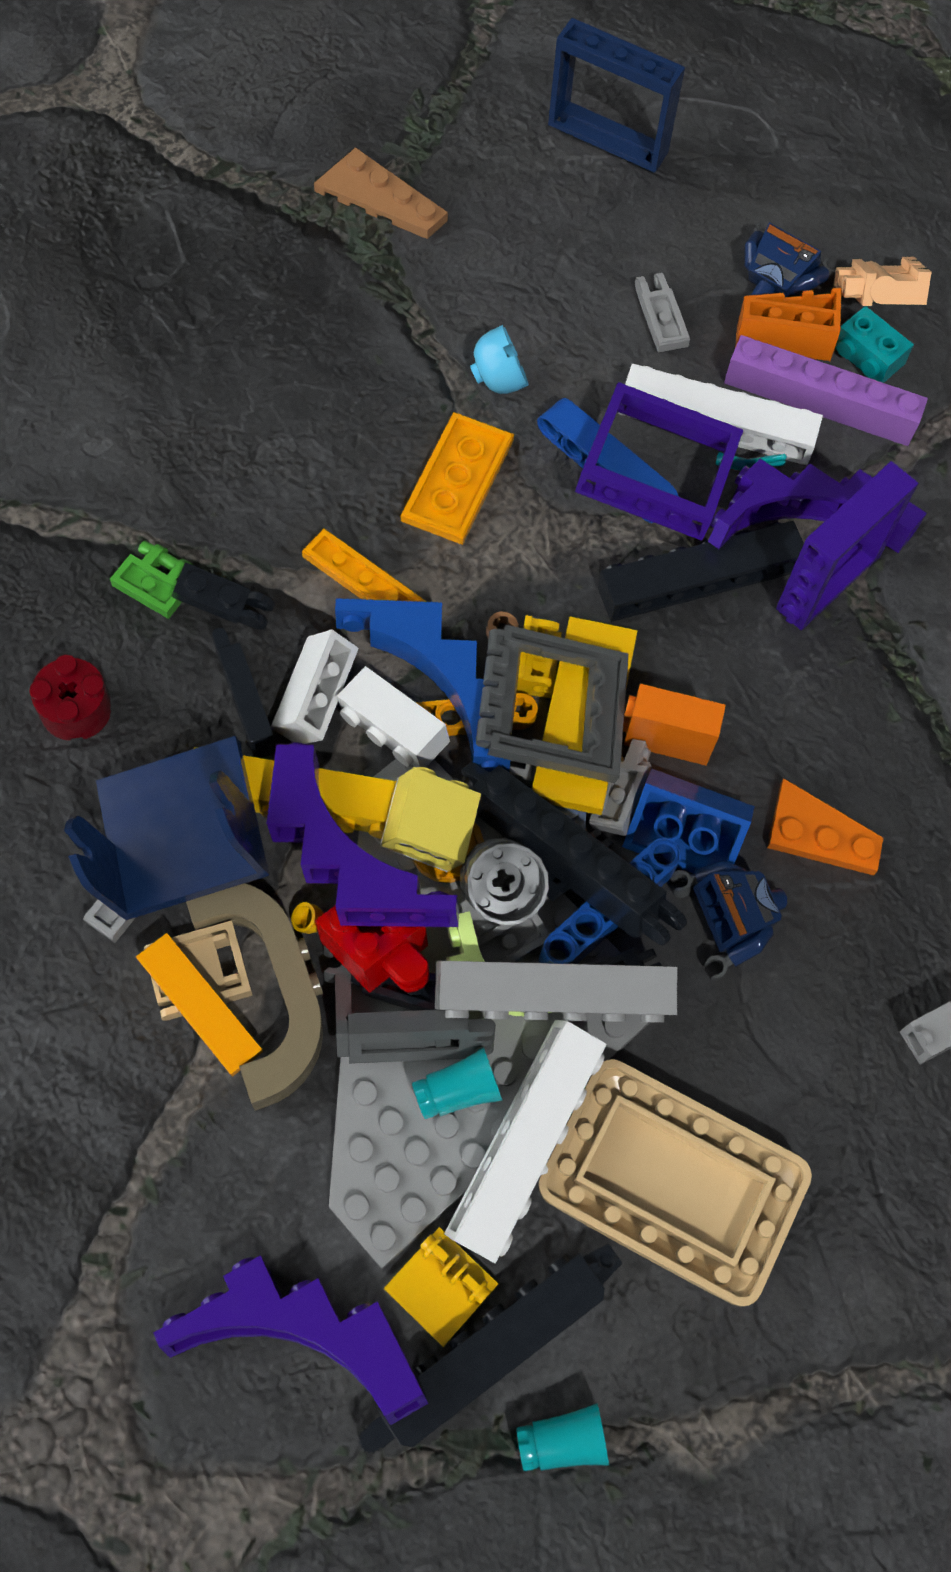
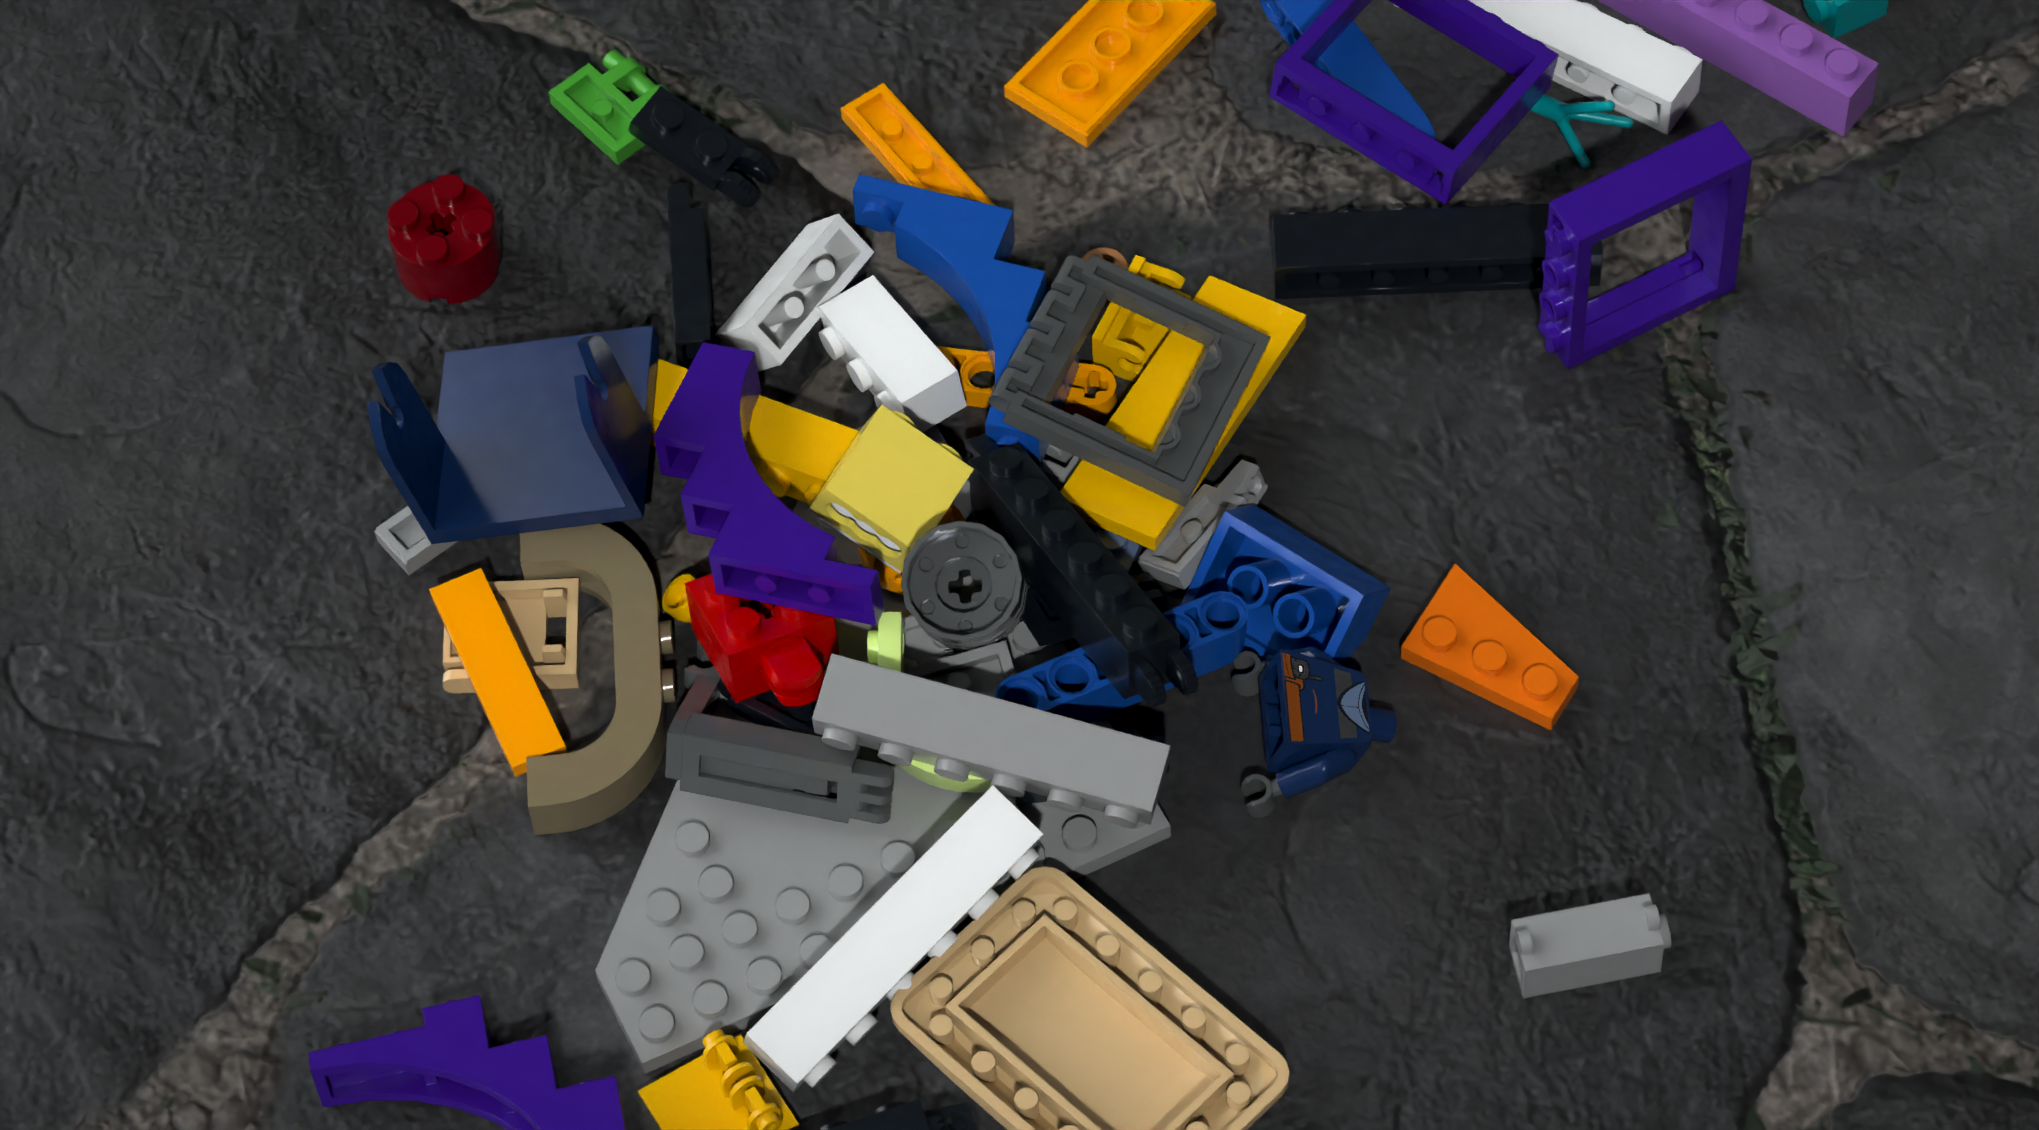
camera: 25 degrees right, 10 degrees down
(457, 1086) = (820, 848): teal plant -> none
(673, 723) = (1305, 447): orange brick -> none
(770, 495) = (1568, 151): dark purple arch -> none

